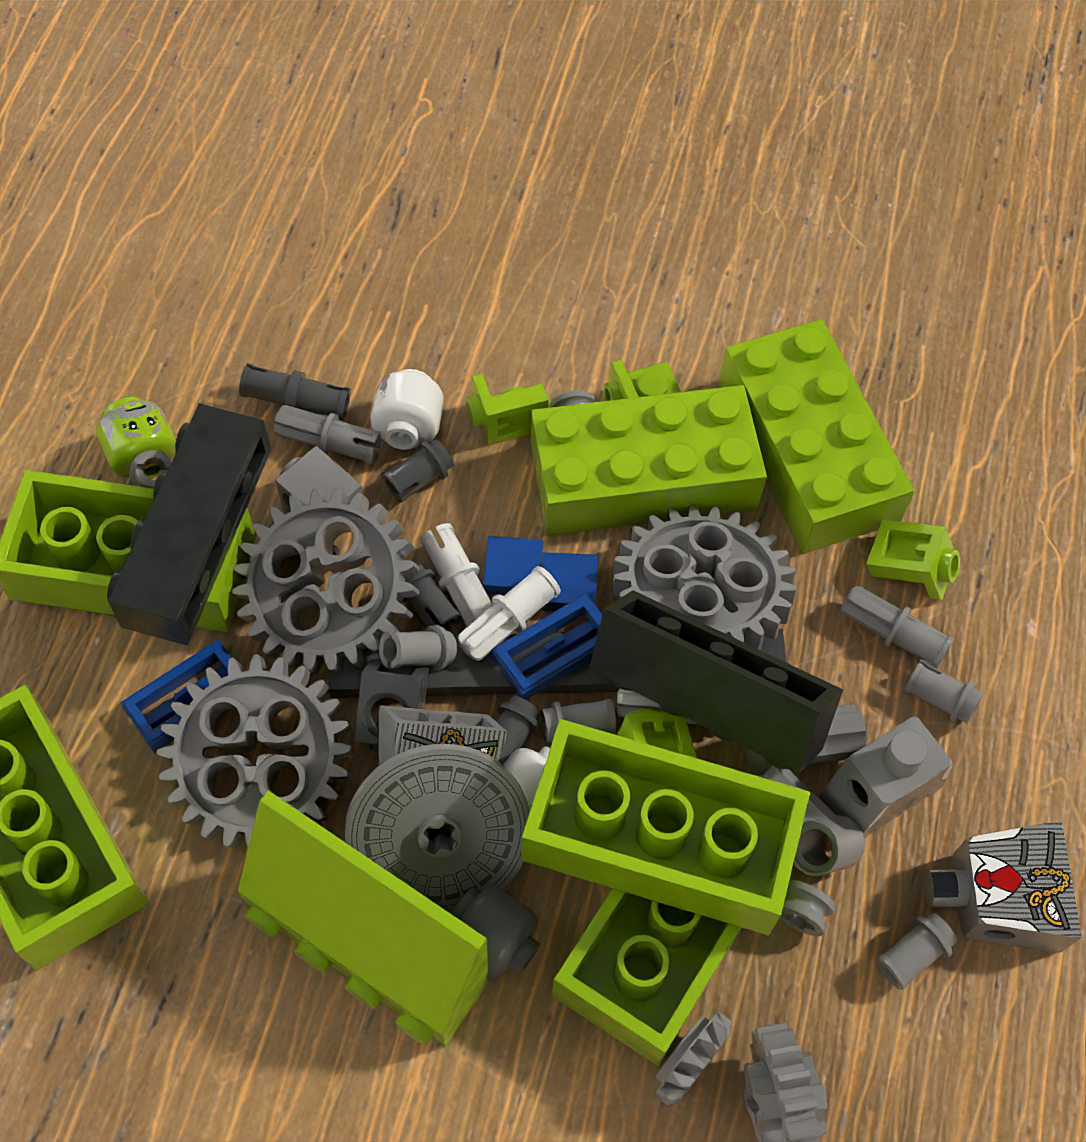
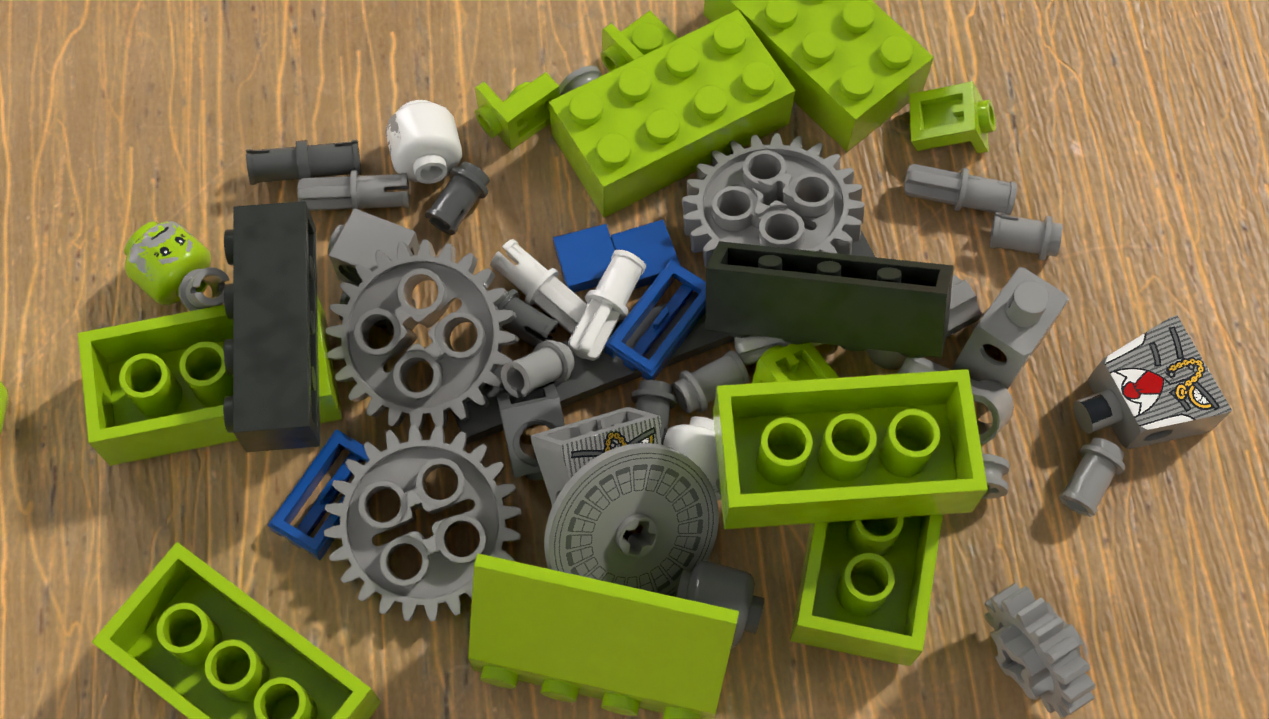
camera: 20 degrees left, 5 degrees up
(692, 1057) = (941, 646): light grey gear -> none

